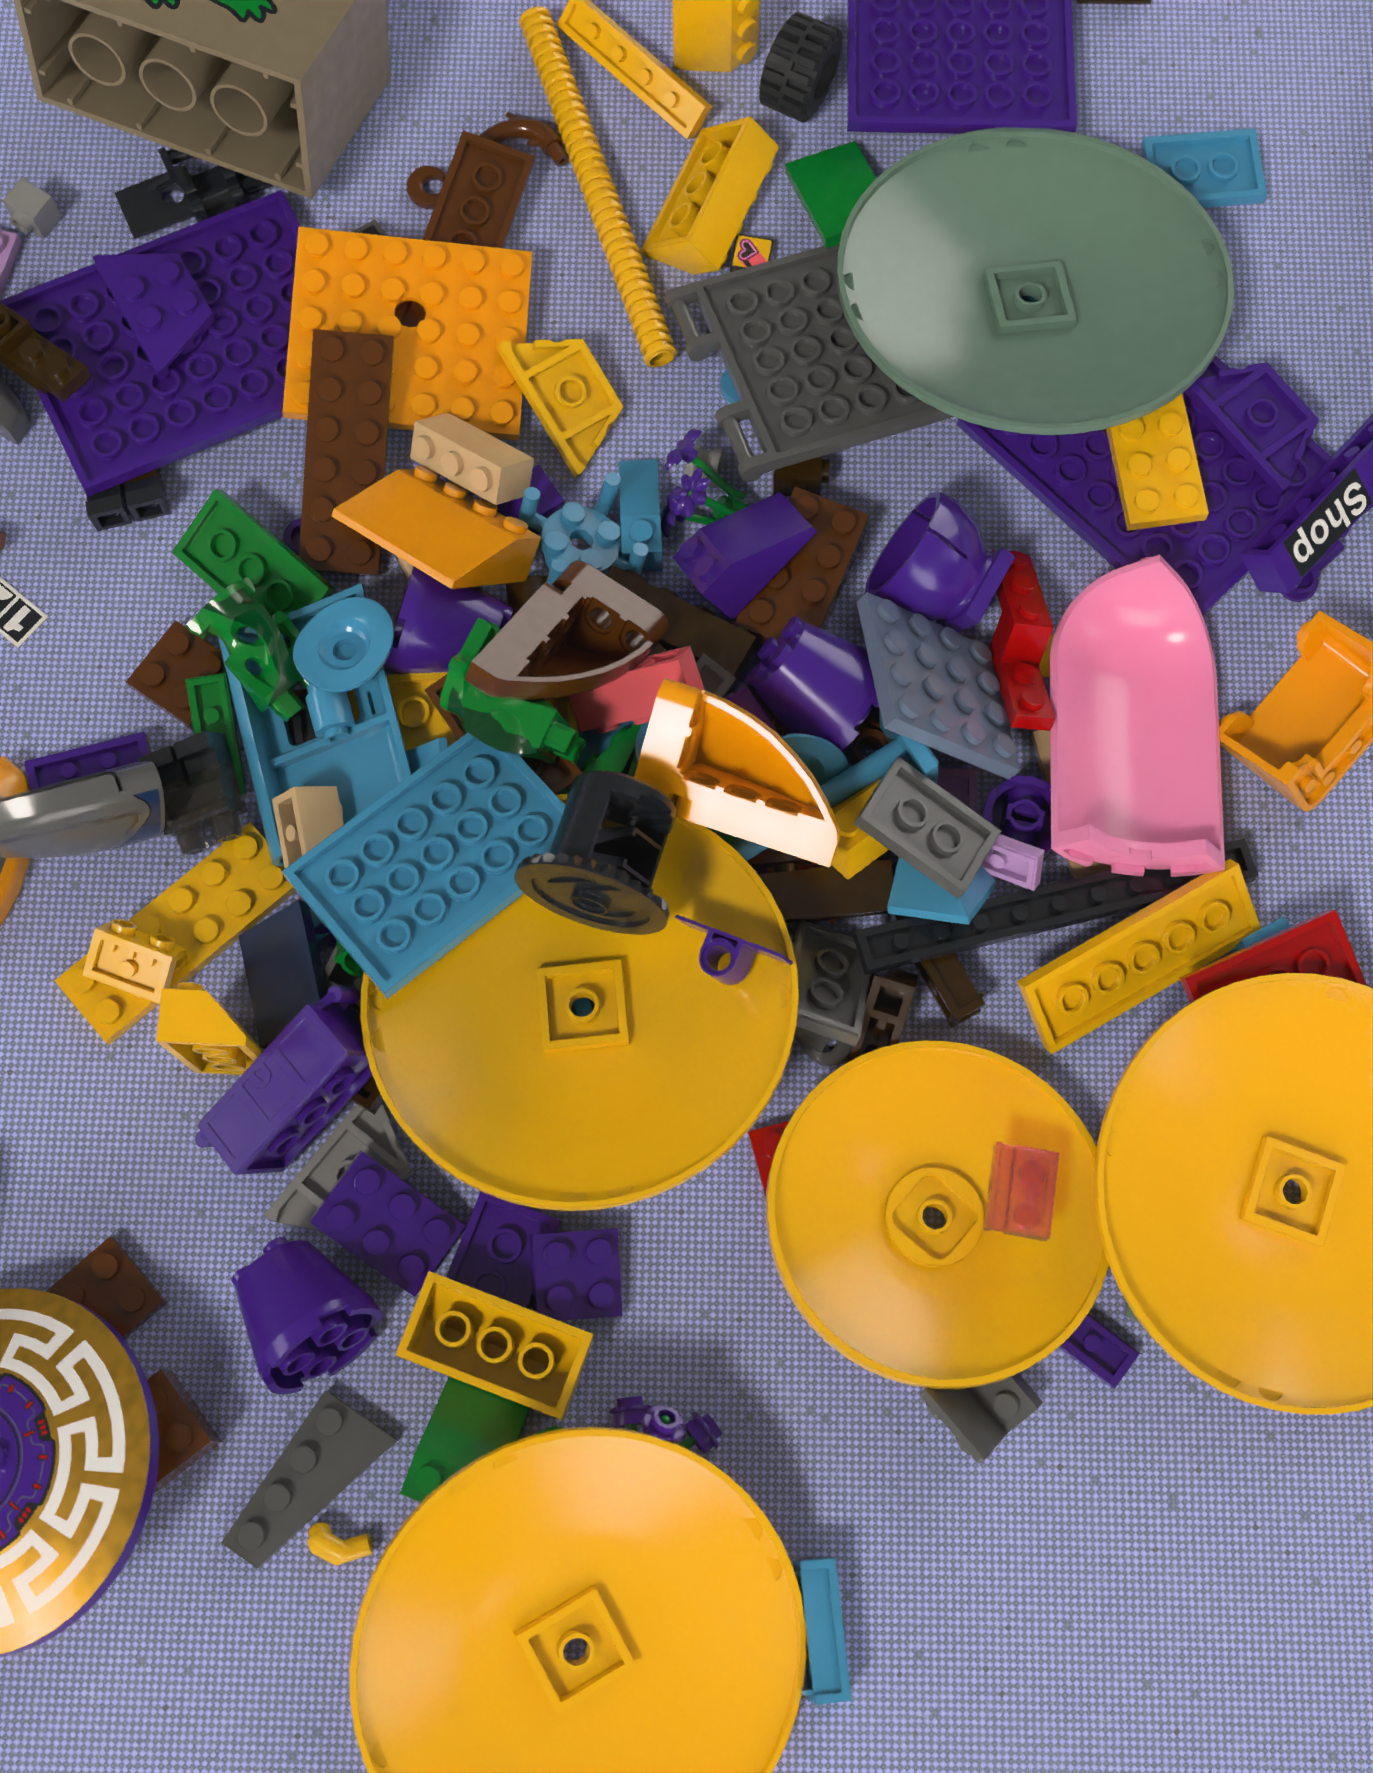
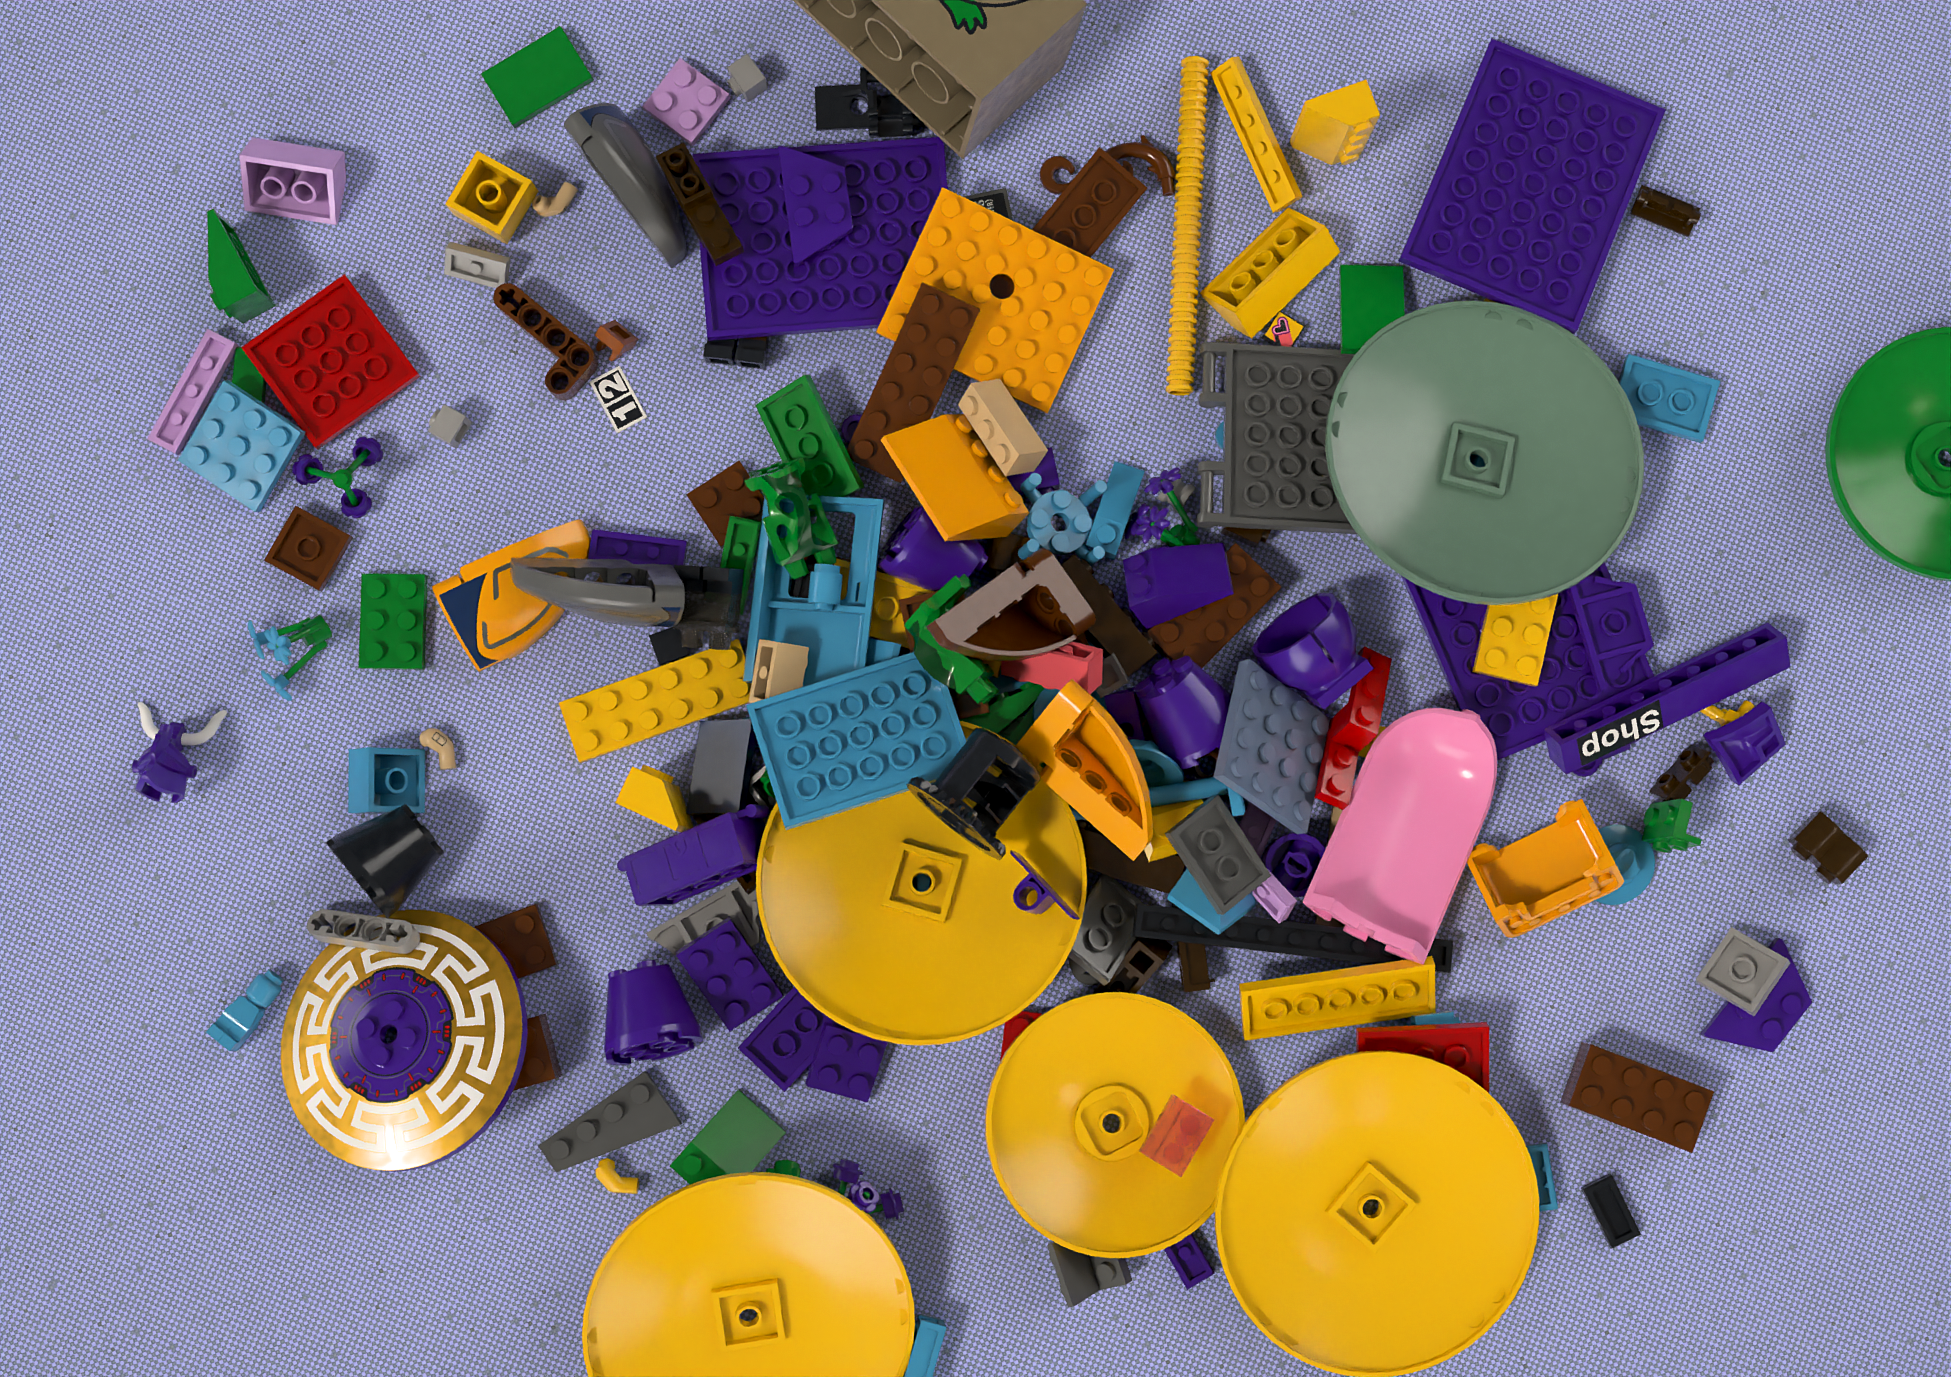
camera: 25 degrees right, 10 degrees up
(132, 959) = (619, 714): yellow bracket -> none
(167, 862) = (668, 646): none -> black tile
(344, 644) = (853, 545): dark azure hat -> none
(495, 1345) = (771, 1093): yellow slope -> none
(565, 393) = (1095, 395): yellow wing -> none
(800, 66) = (1383, 195): black tyre -> none

